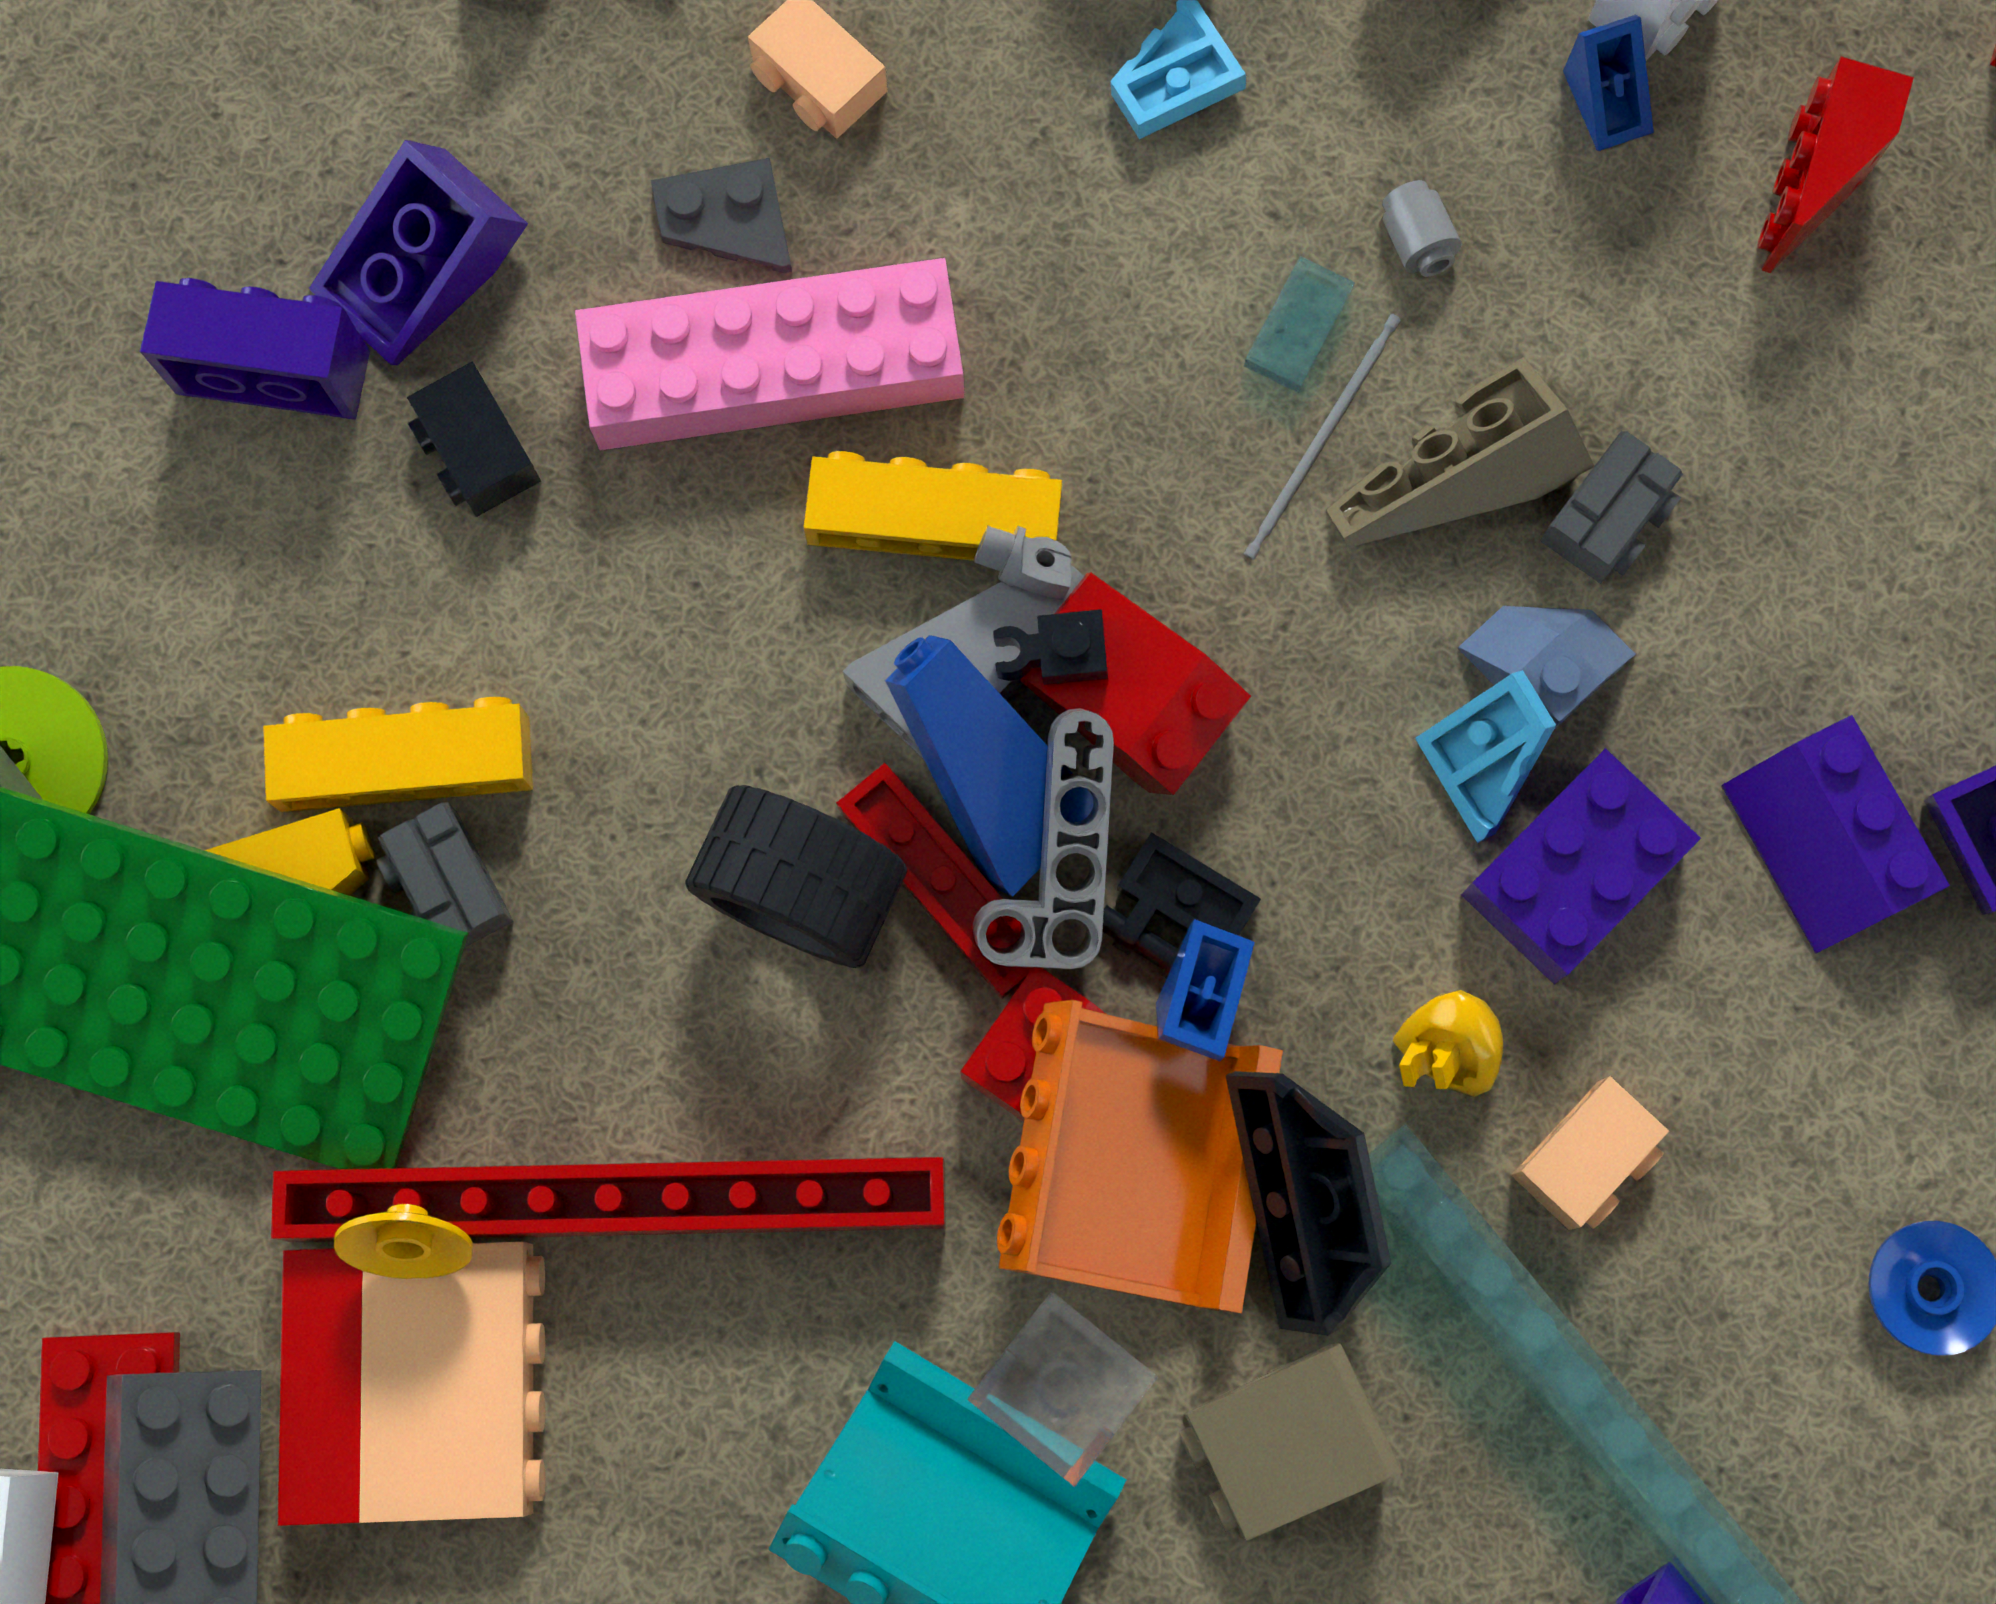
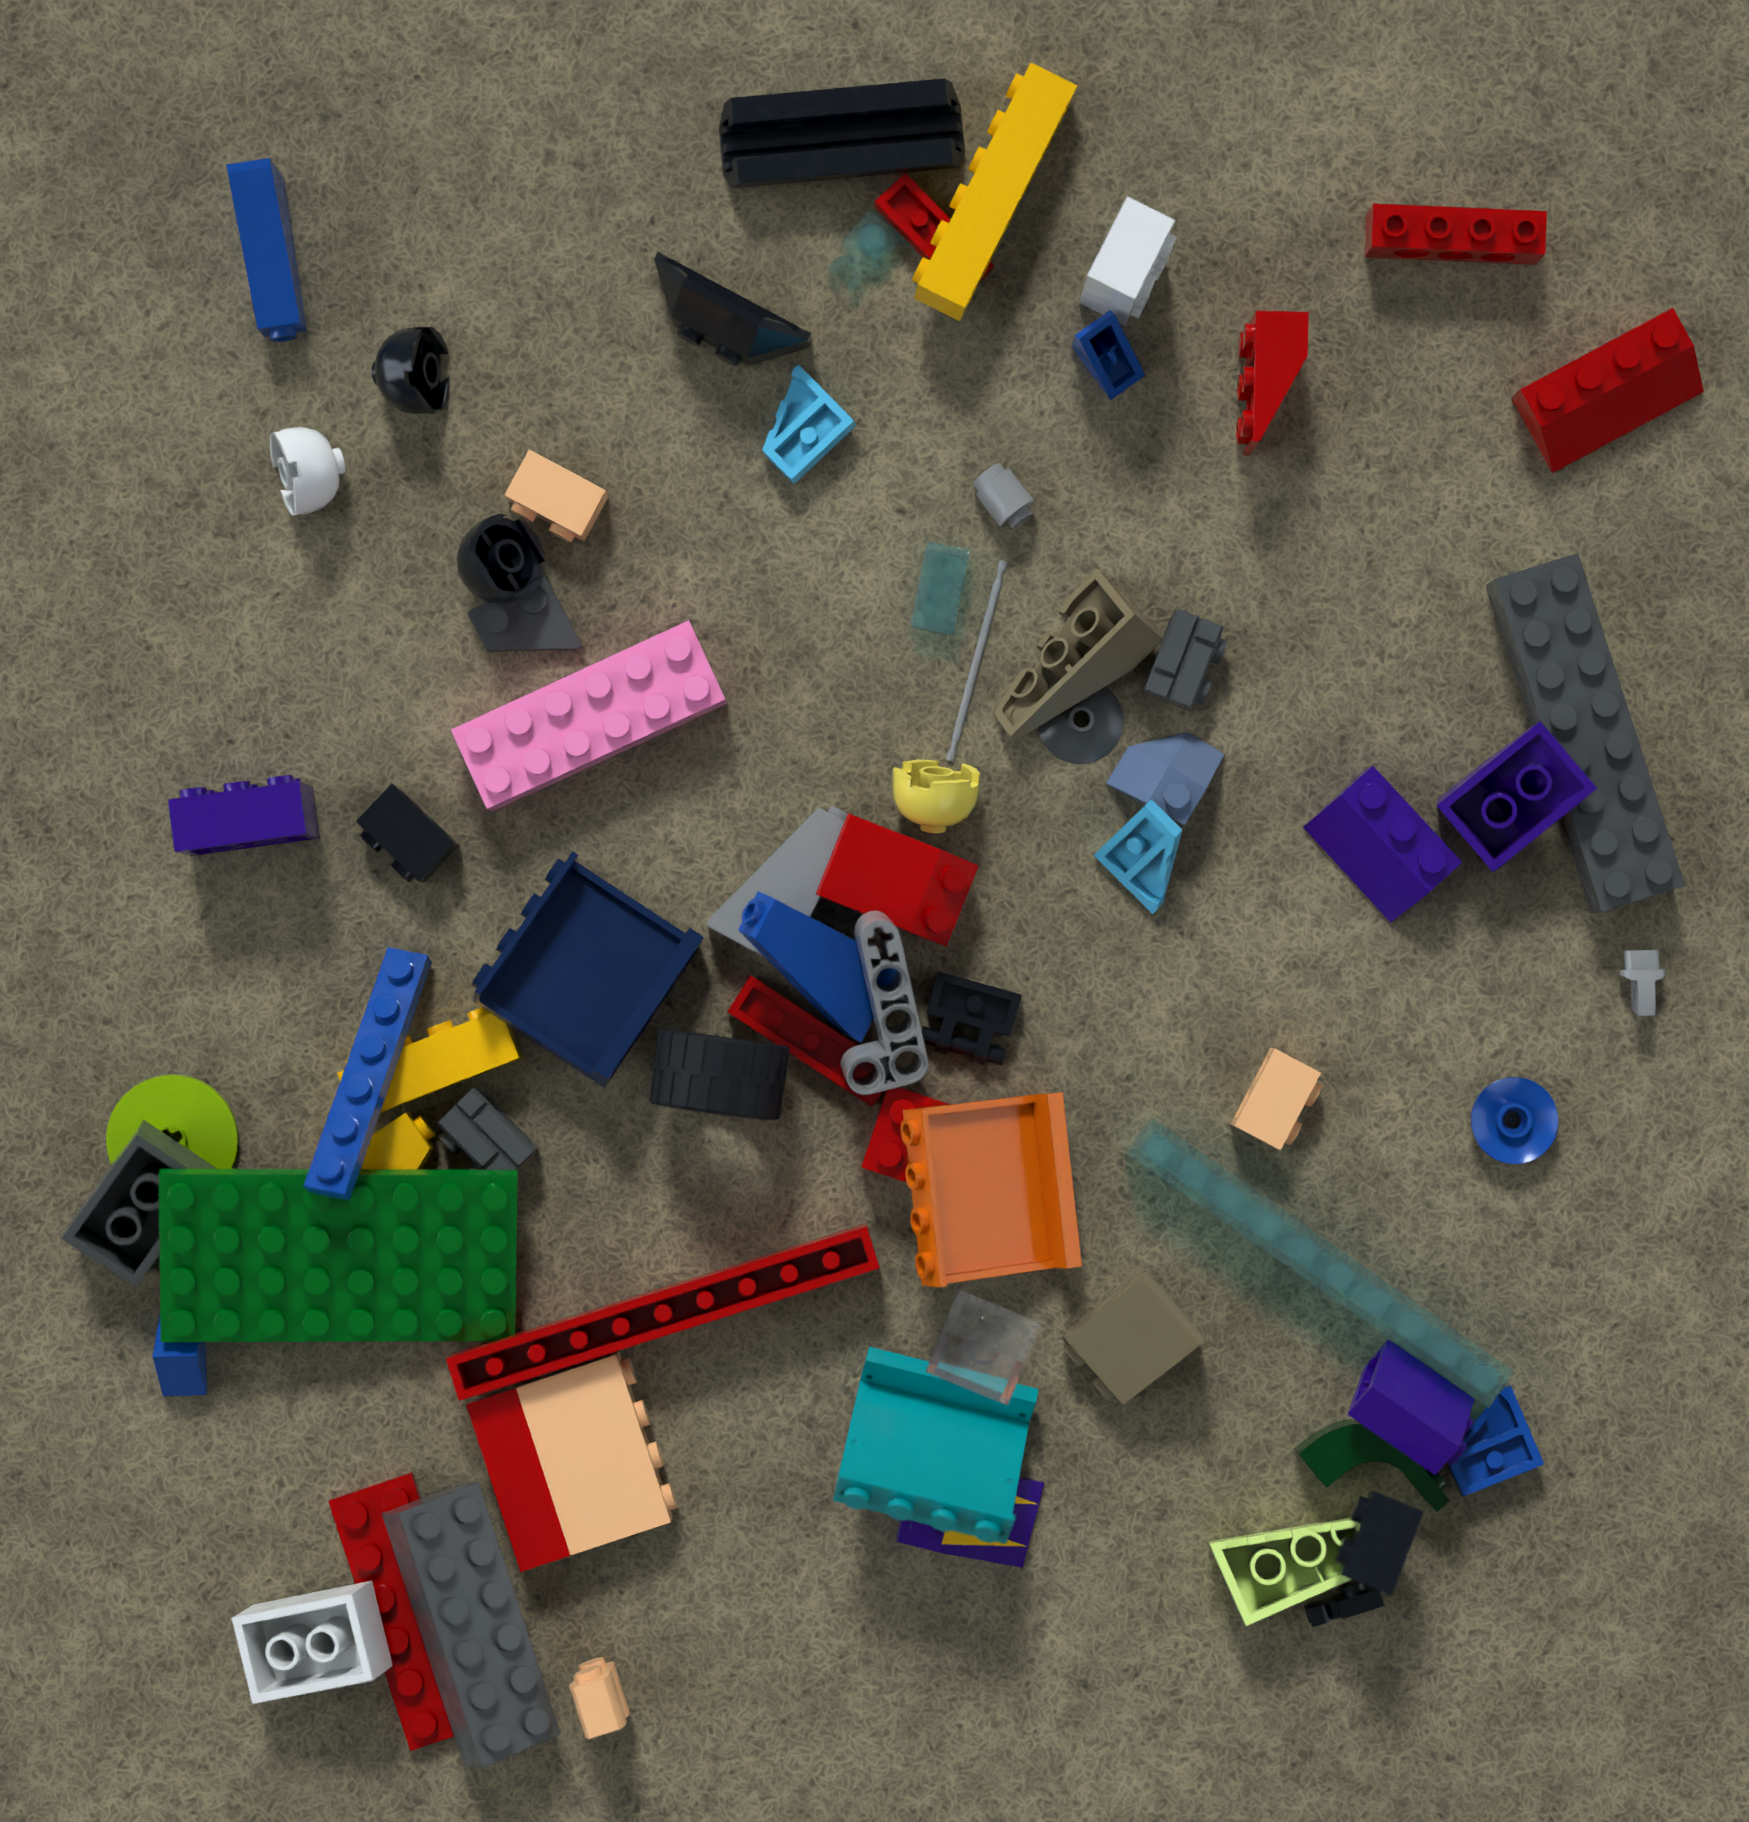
camera: 20 degrees left, 10 degrees up
(299, 739) = (368, 1074): none -> blue plate
(403, 1244) = (546, 1380): yellow dish -> none
(417, 249) = (324, 710): dark purple slope -> none
(653, 687) = (584, 970): none -> dark blue panel
(715, 116) = (500, 560): none -> black cylinder
(923, 508) = (732, 793): yellow brick -> none
(1018, 561) = (800, 821): light grey piece -> none
(1066, 648) = (849, 873): black plate -> none
(1203, 990) = (1001, 1070): blue slope -> none
(1215, 589) = (934, 794): none -> light yellow cylinder
(1309, 1201) = (1104, 1186): black wedge -> none
(1441, 582) = (1087, 743): none -> dark grey dish
(1453, 1043) = (1171, 1054): yellow piece -> none
(1580, 867) = (1223, 913): dark purple brick -> none

